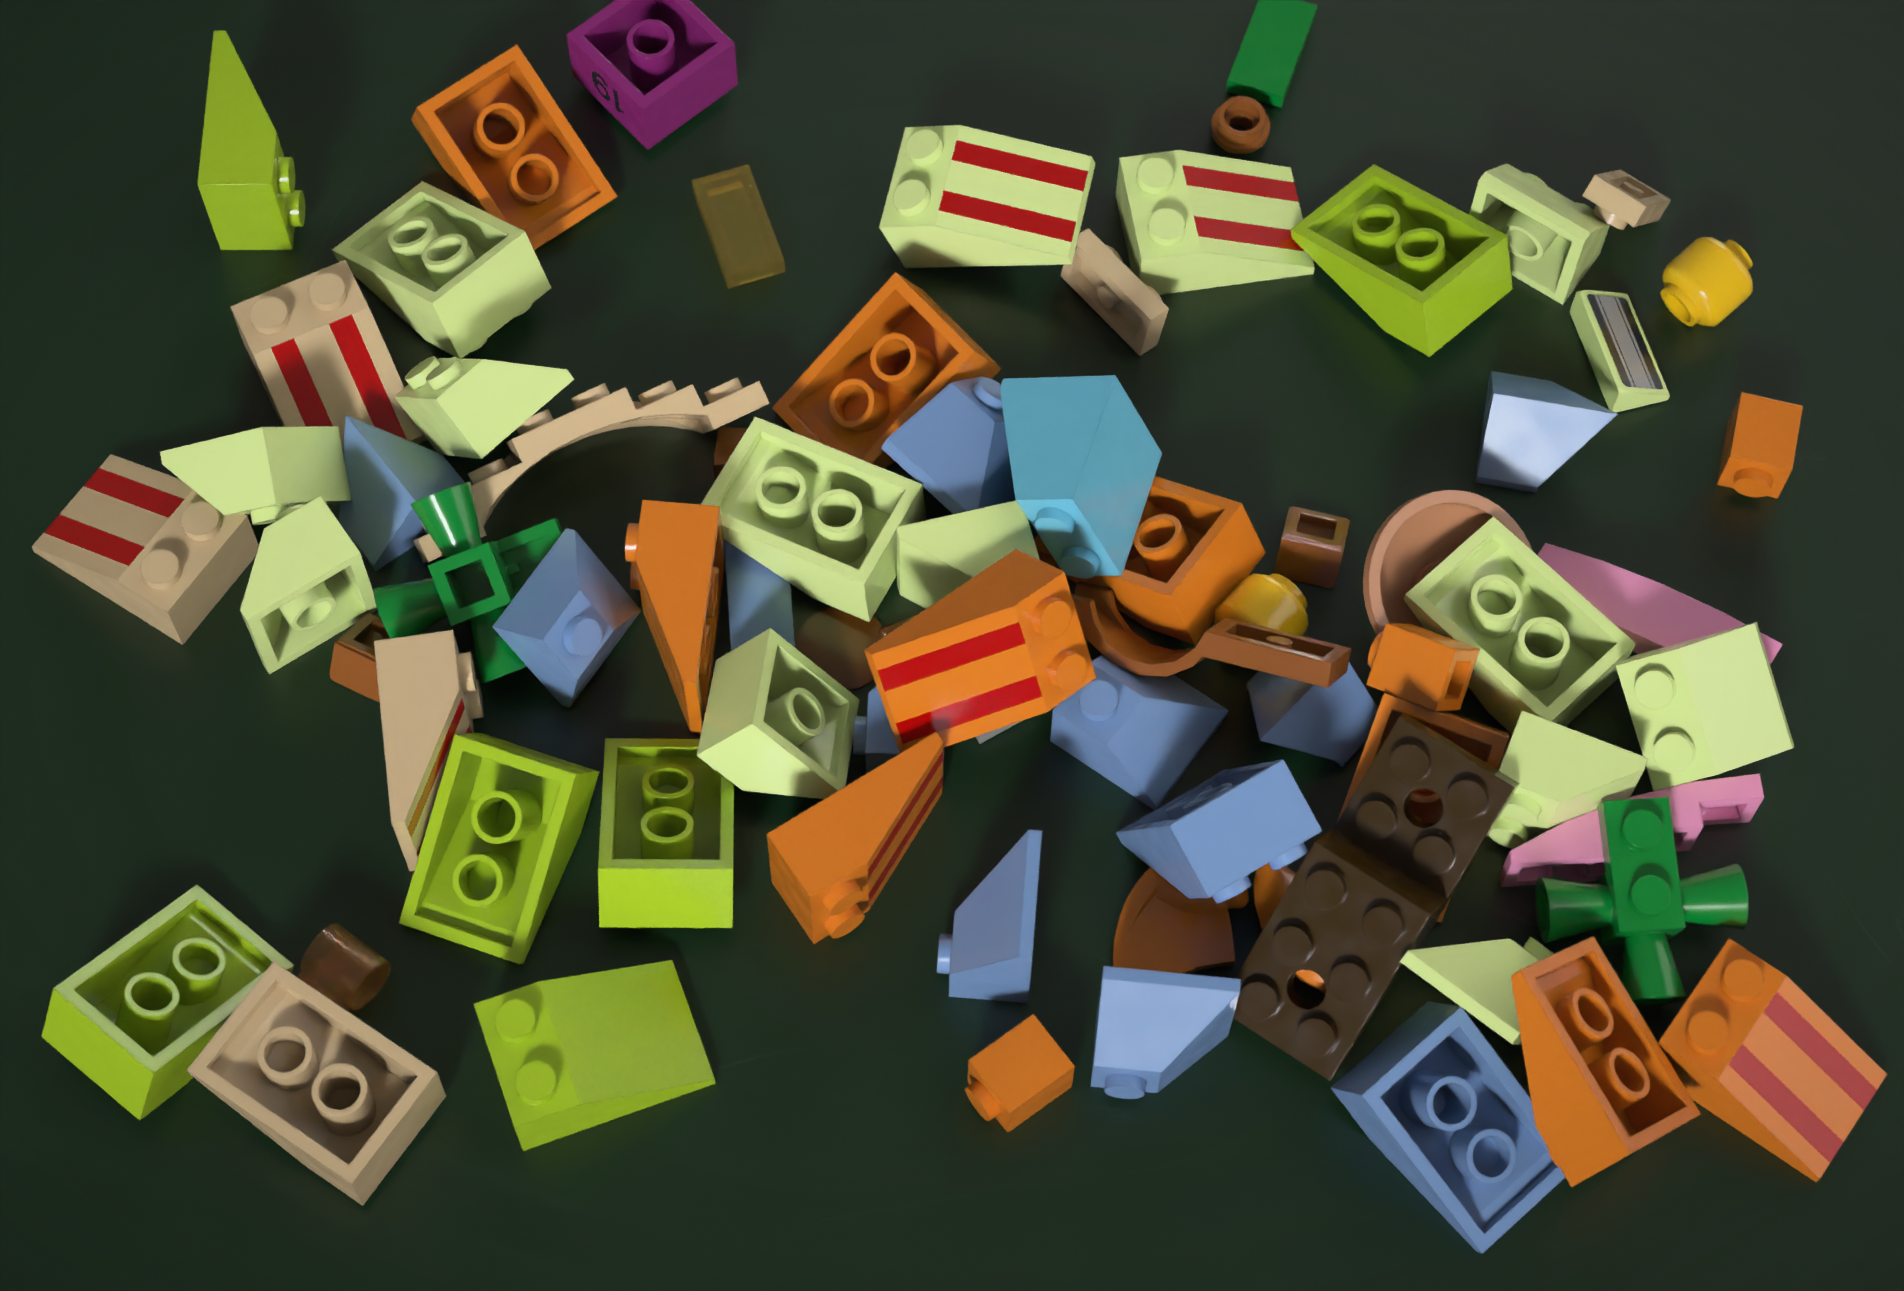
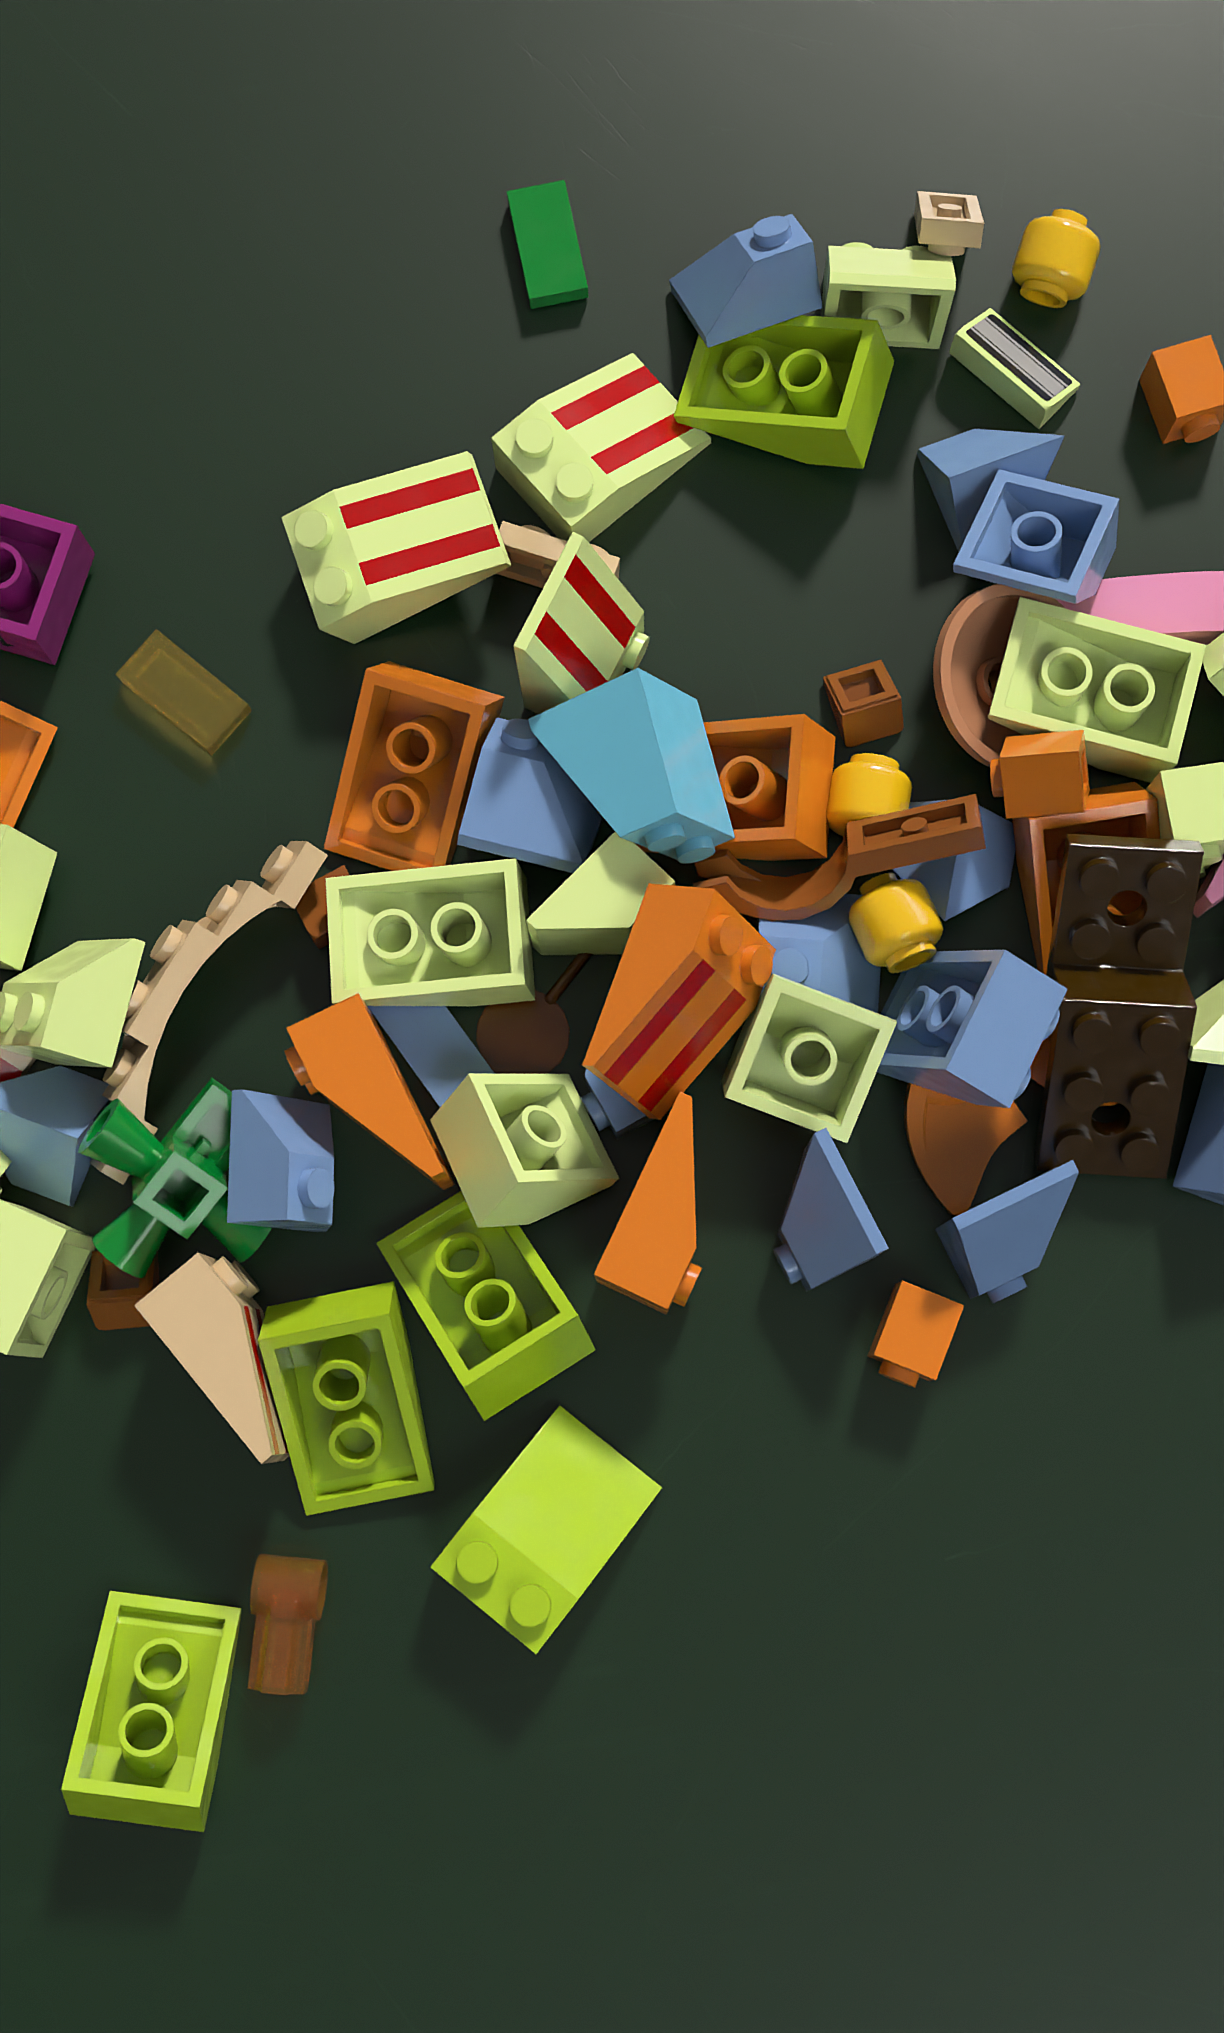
camera: 25 degrees left, 15 degrees up
(319, 1082) = (337, 1715): tan slope -> none
(1069, 781) = (807, 1057): none -> yellowish green slope
(1093, 326) = (578, 630): none -> yellowish green slope
(1217, 722) = (895, 923): none -> yellow head
(1245, 113) = (566, 322): dark orange plate -> none
(1422, 154) = (750, 281): none -> medium blue slope
(1546, 484) = (1041, 538): none -> medium blue slope

